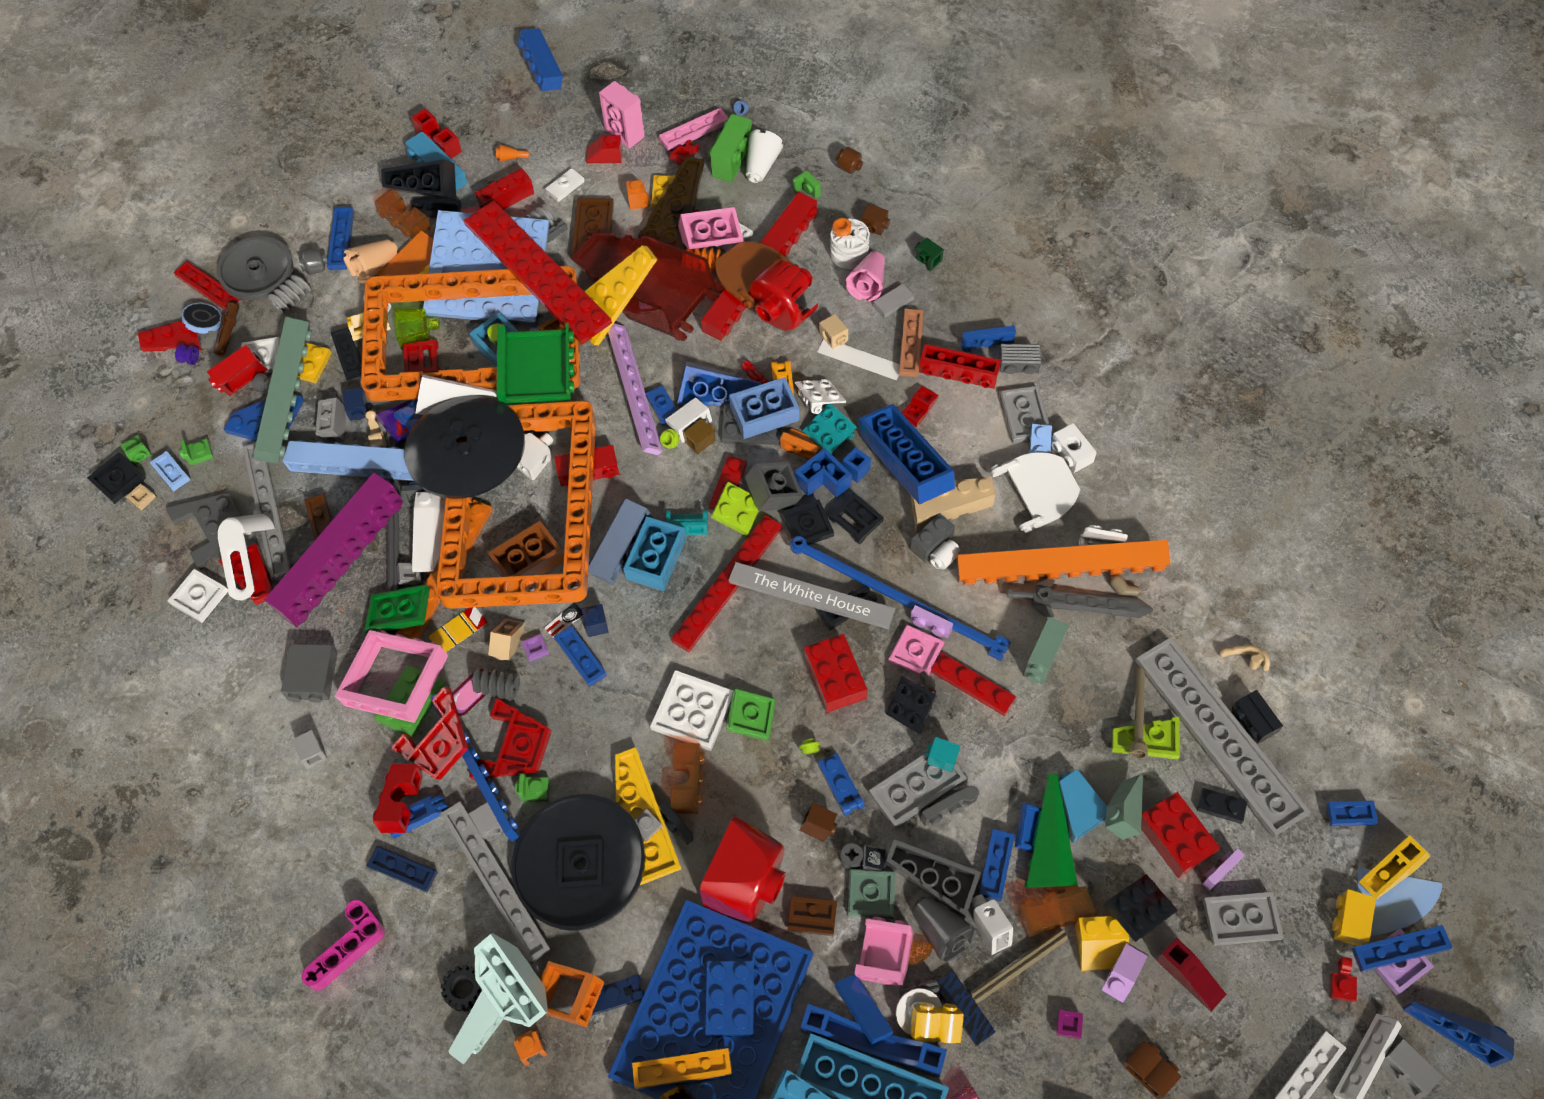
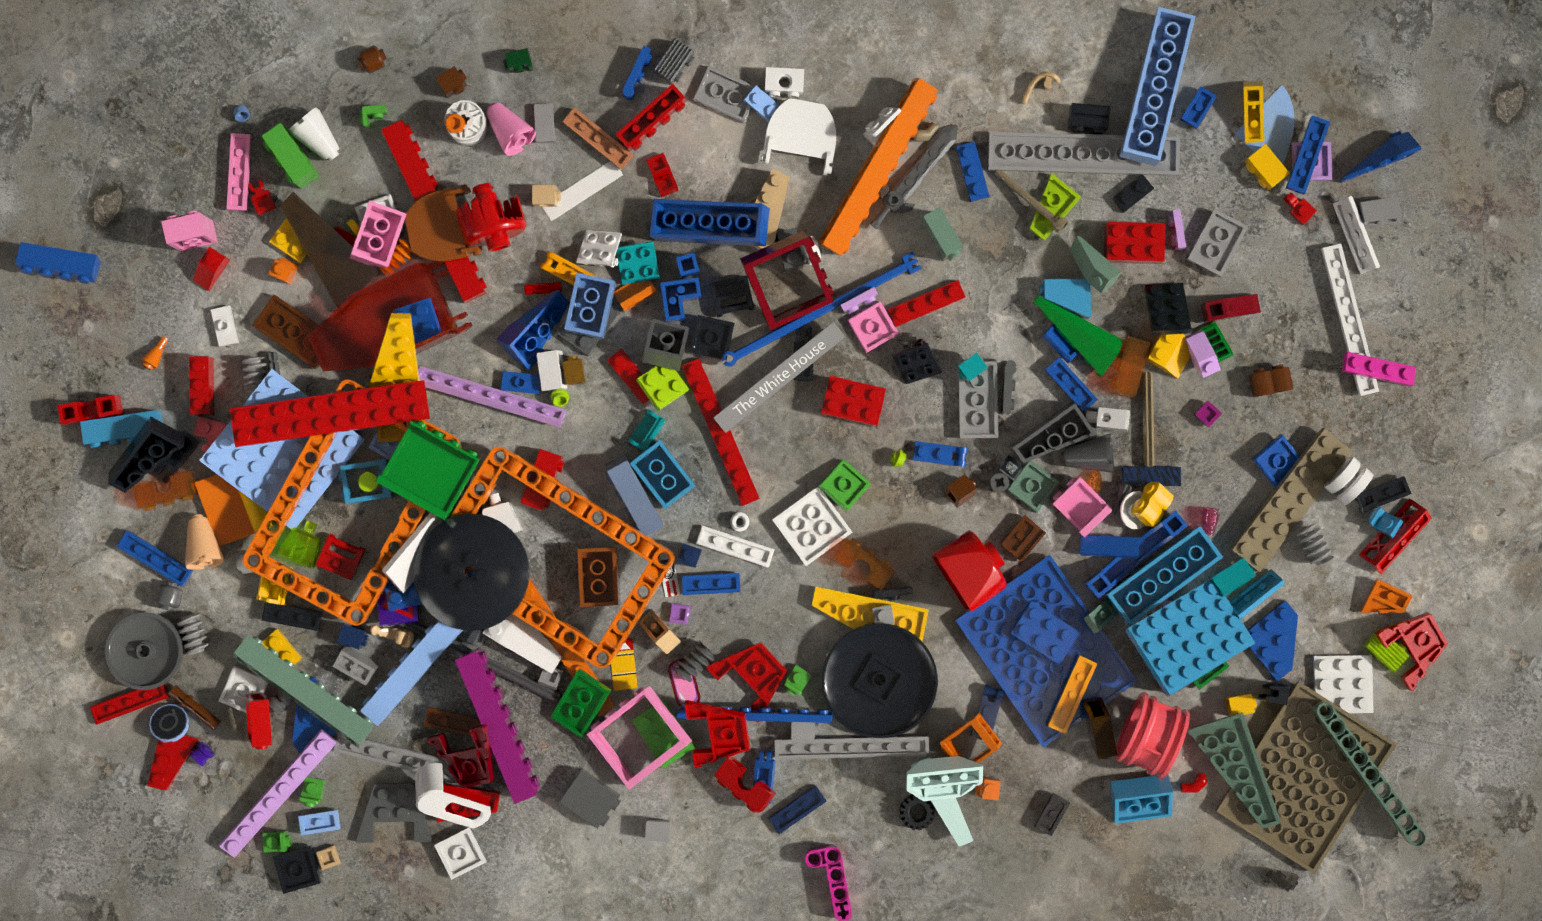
camera: 65 degrees left, 25 degrees up
(180, 425) = (277, 793): none -> lavender plate
(289, 546) = (468, 765): none -> dark red wing
(629, 657) = (735, 546): none -> white tile
(655, 640) = (739, 515): none -> white plate
(664, 296) = (423, 319): none -> blue plate
(784, 1045) = (1100, 615): none -> sand green plate
(873, 530) = (774, 250): none -> dark red window
(1122, 649) = (972, 171): none -> blue plate
(1138, 1001) = (1228, 352): none -> green slope
(1337, 755) = (1157, 86): none -> light blue brick

